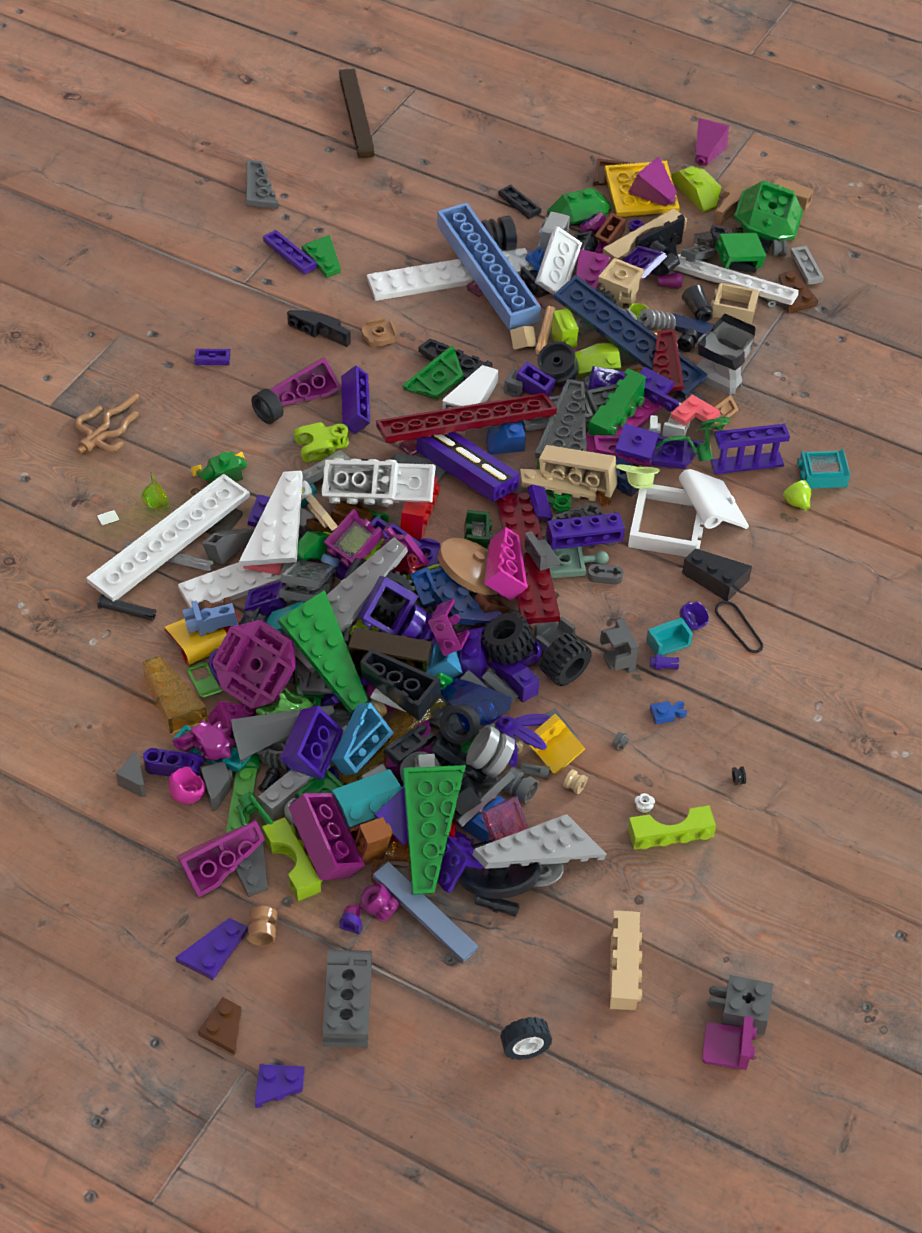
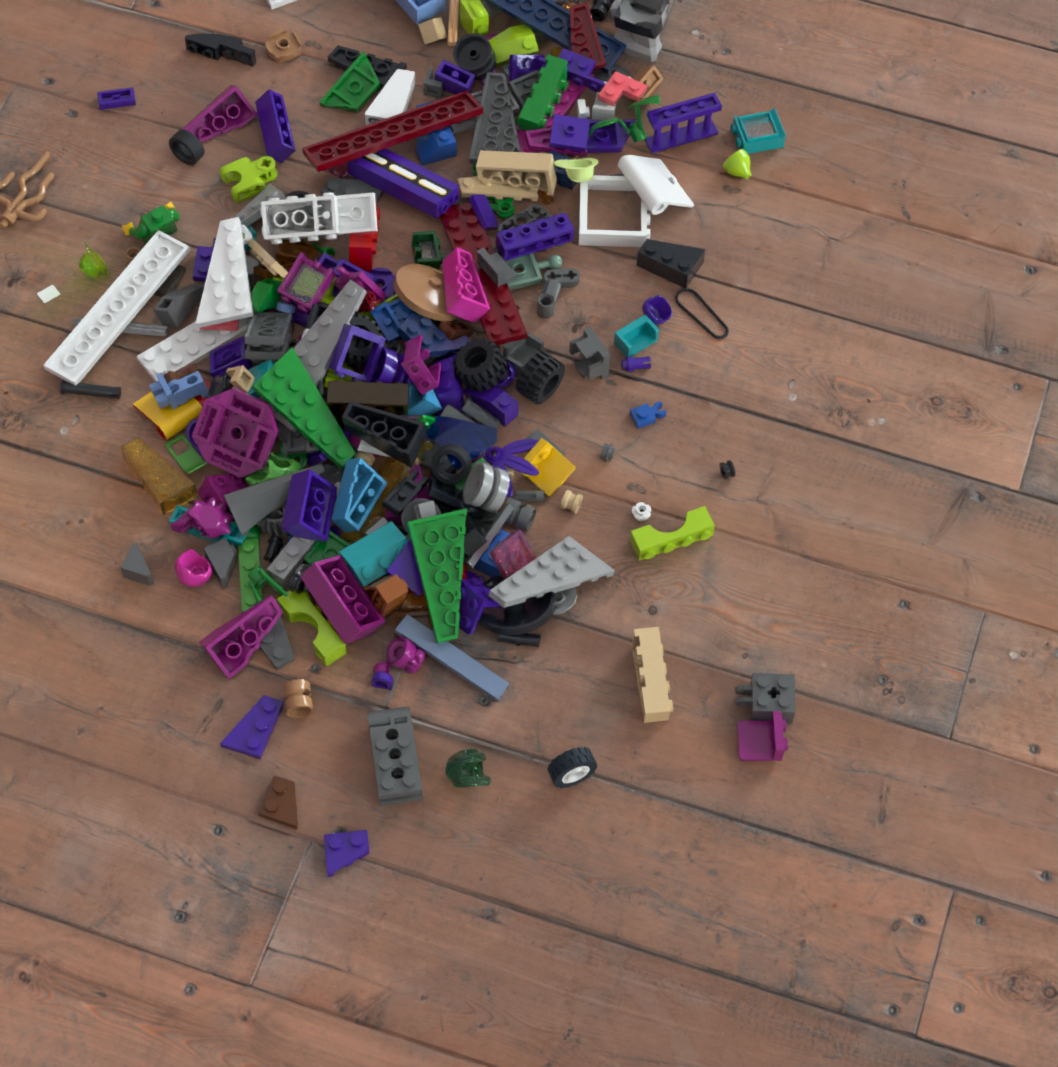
camera: 10 degrees left, 10 degrees up
(166, 761) = (166, 542): dark purple piece -> none
(270, 613) = (240, 378): none -> tan panel
(283, 815) = (296, 584): none -> black bush
(417, 1022) = (466, 769): none -> clear green helmet
(588, 590) = (548, 298): none -> dark grey piece

